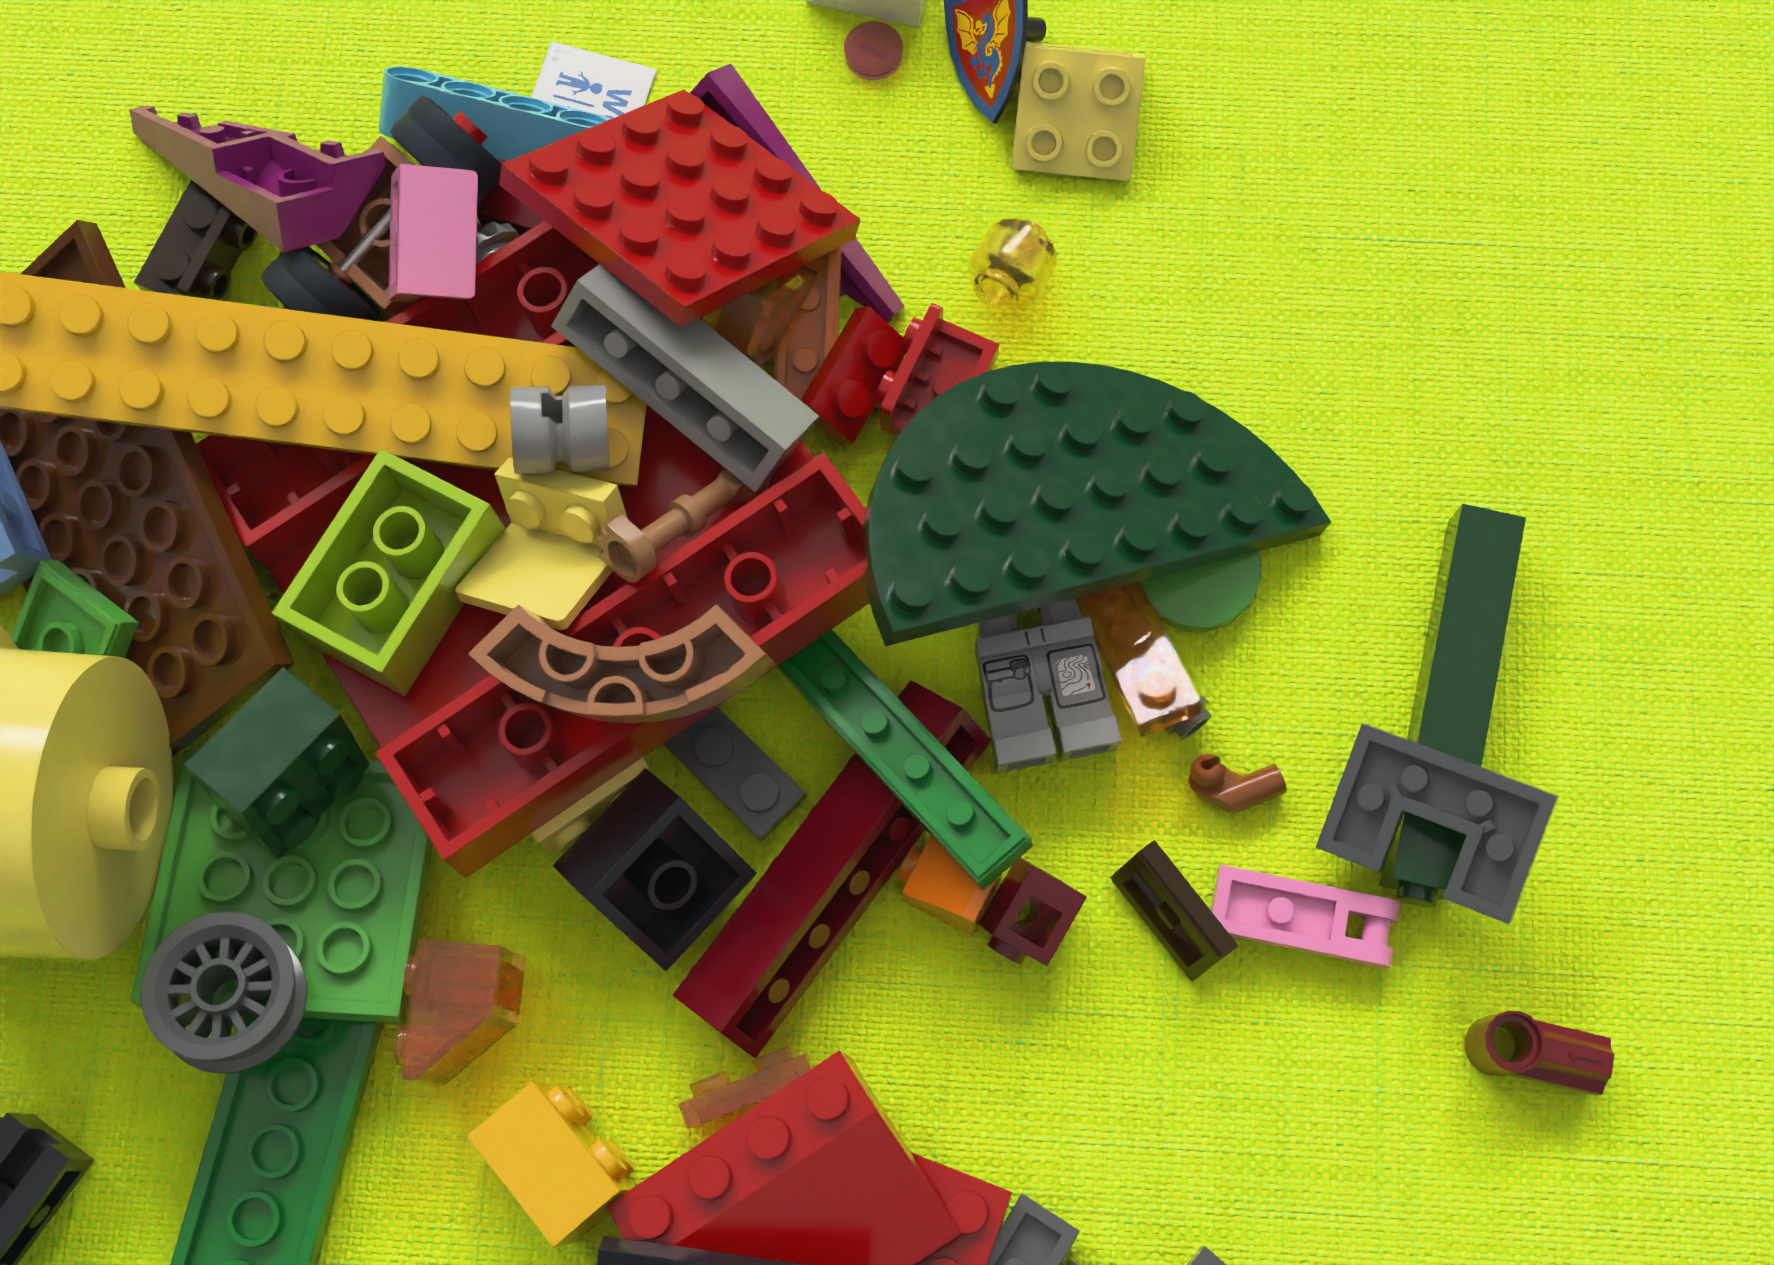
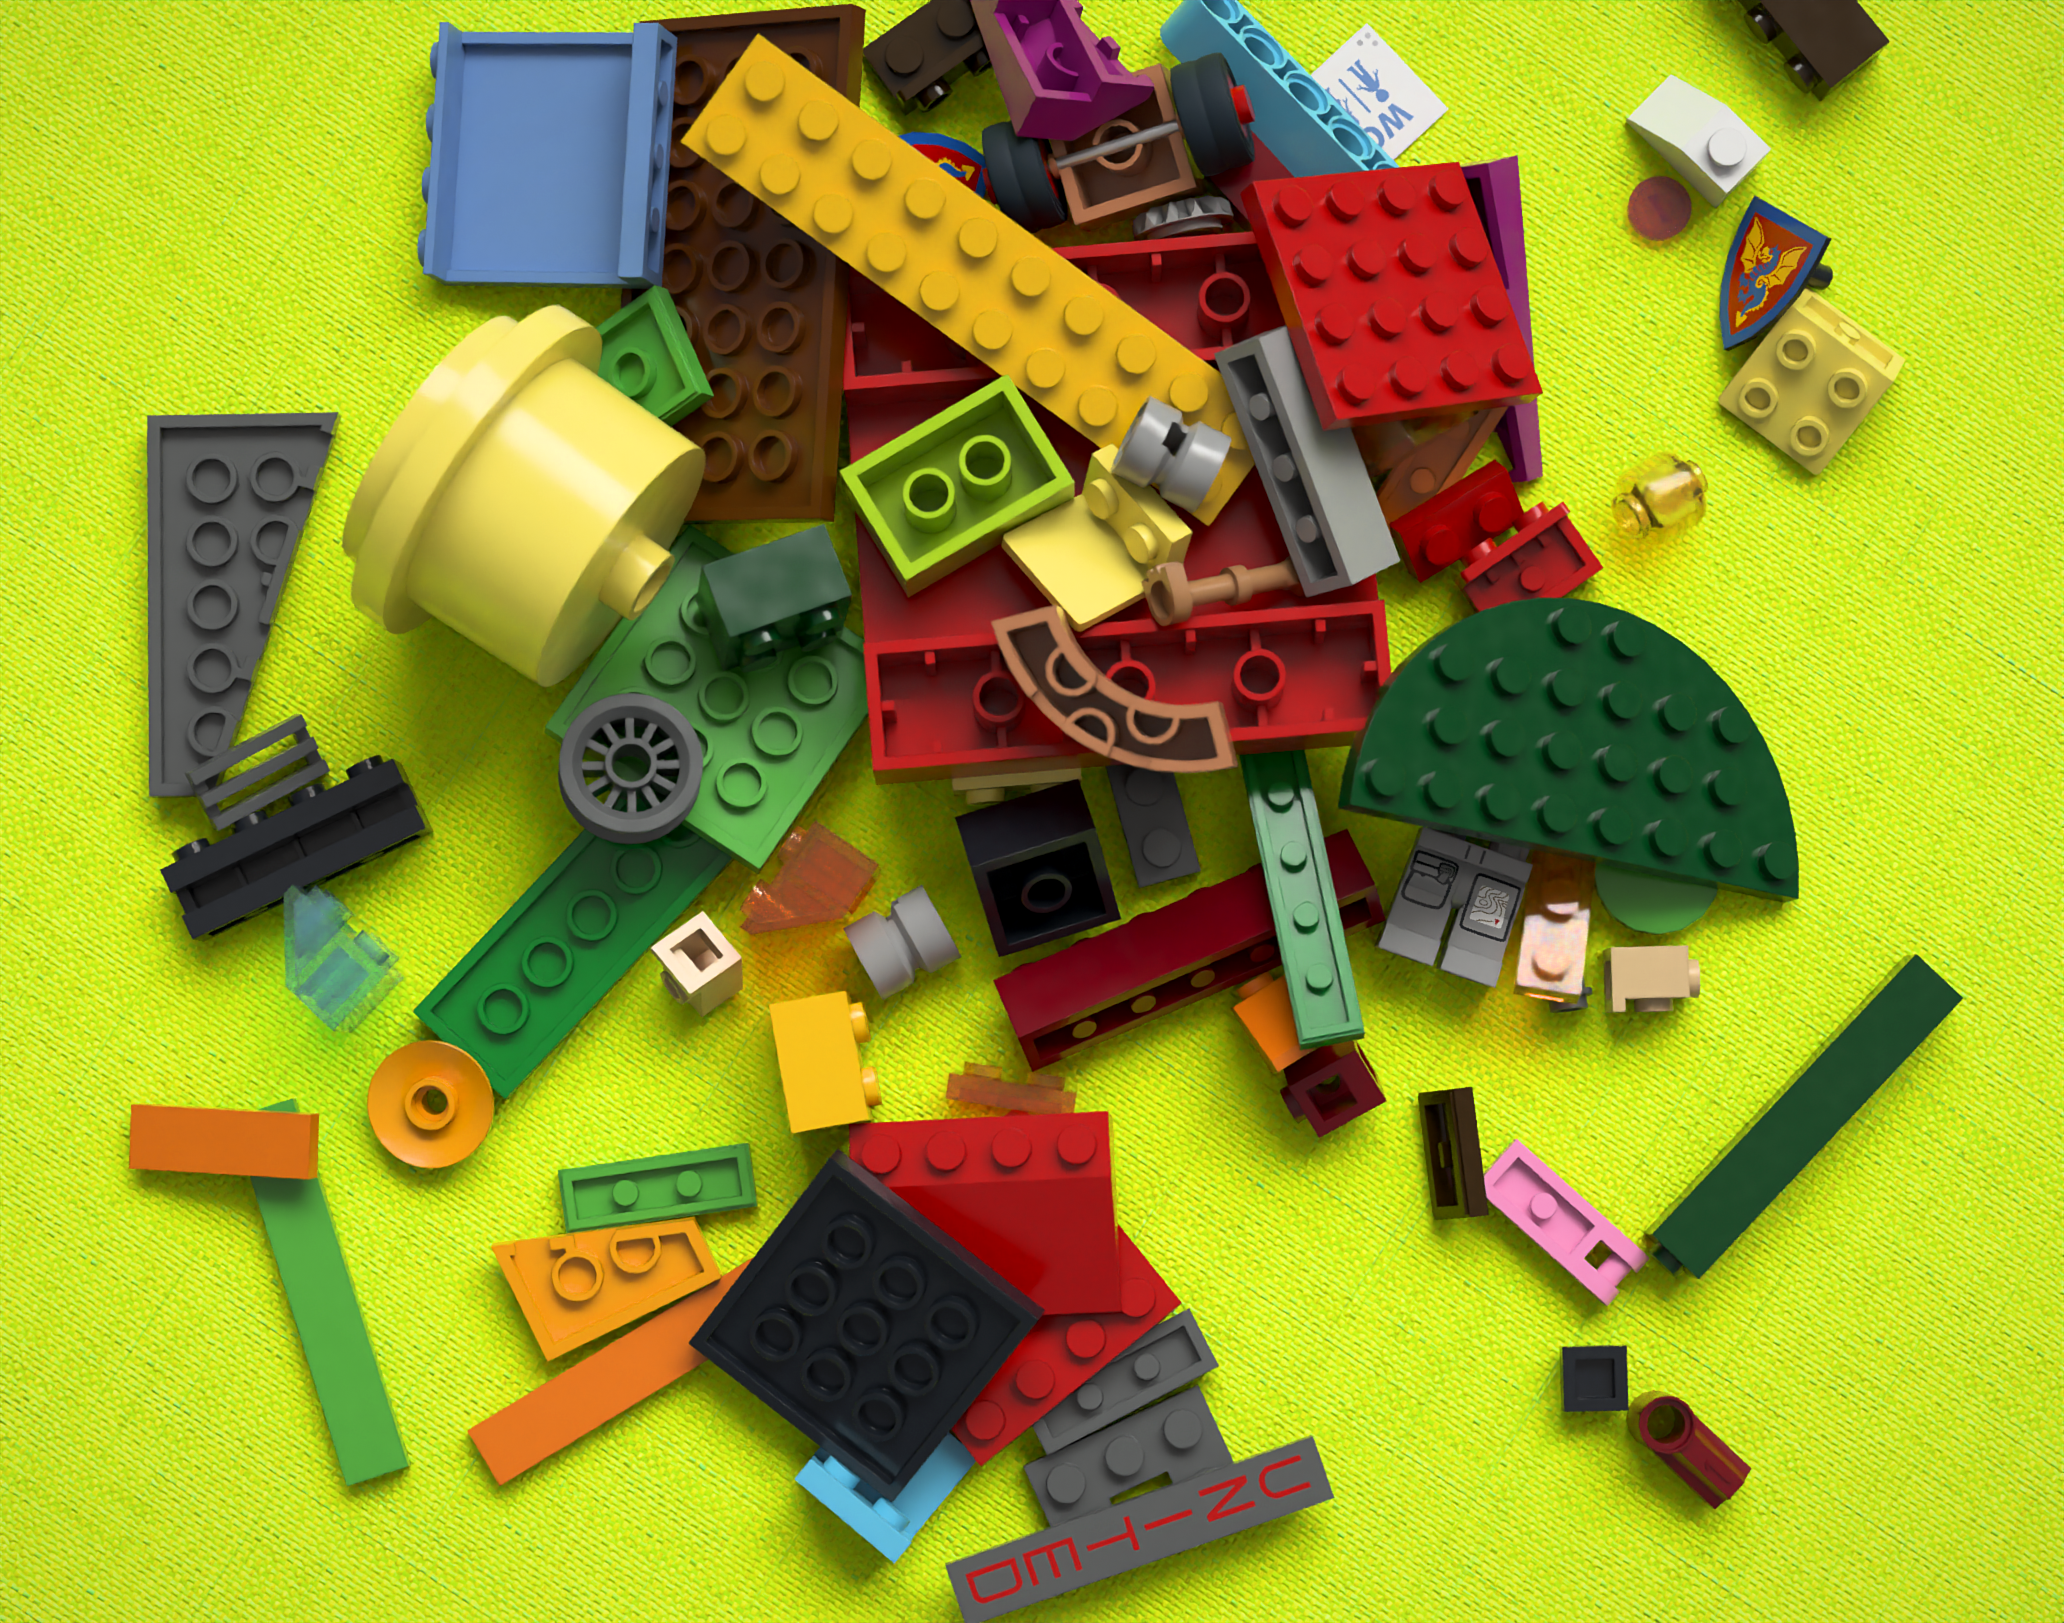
camera: 25 degrees right, 10 degrees up
(393, 1139) = (699, 965): none -> tan brick
(432, 233) = (1154, 193): bright pink panel -> none
(570, 1013) = (902, 942): none -> light grey wheel
(1230, 790) = (1566, 1080): dark orange arm -> none
(1247, 658) = (1649, 977): none -> tan brick
(1420, 1039) = (1593, 1378): none -> black plate
(1496, 812) = (1767, 1233): dark grey plate -> none

